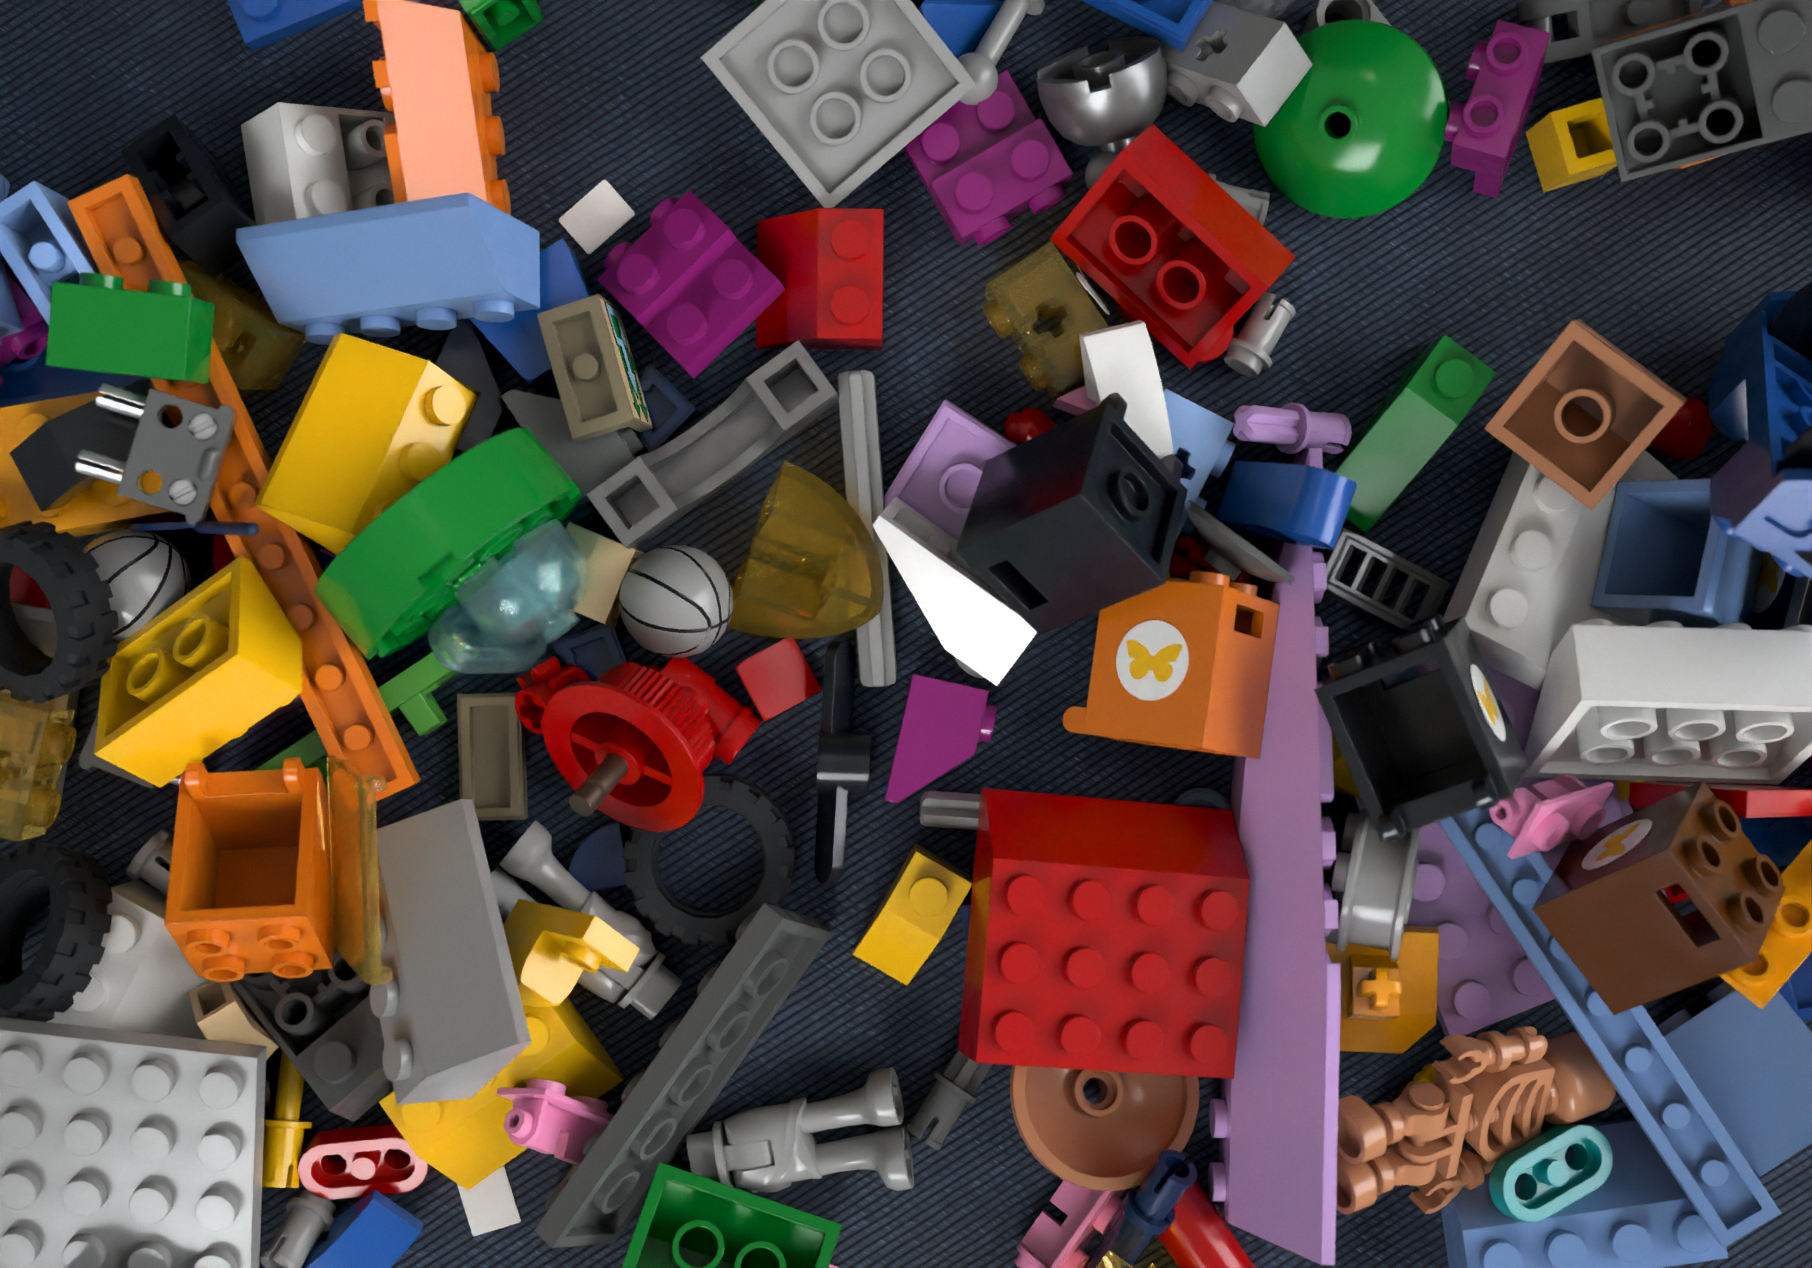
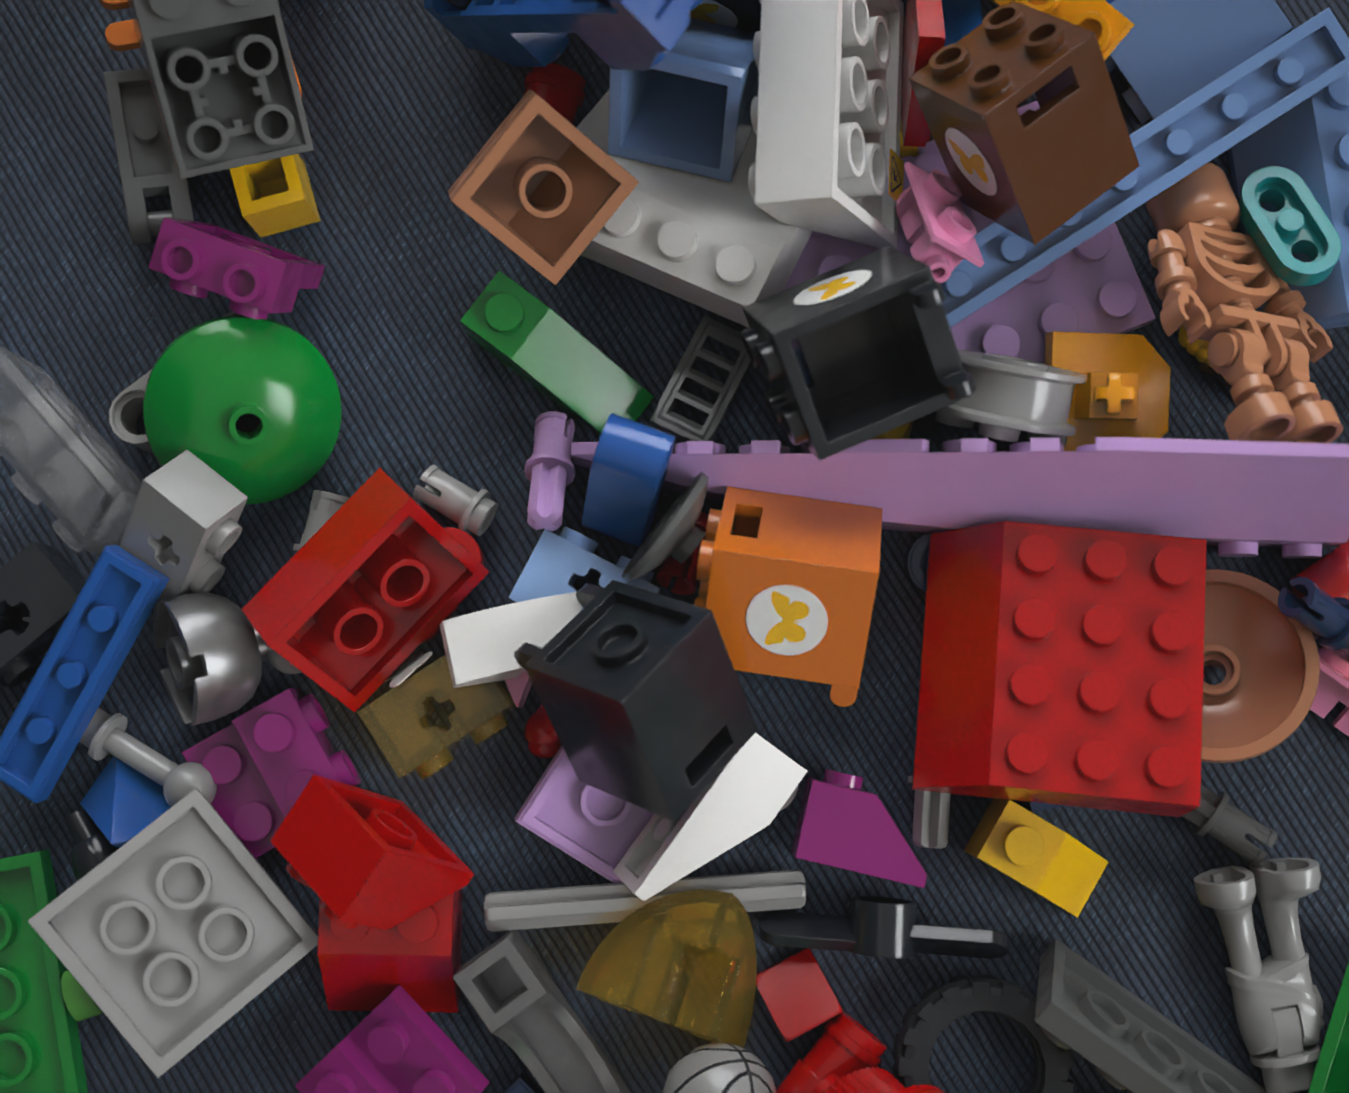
camera: 90 degrees left, 5 degrees down
(914, 252) = (366, 855): none -> red slope
(1598, 774) = (895, 175): none -> yellow sticker

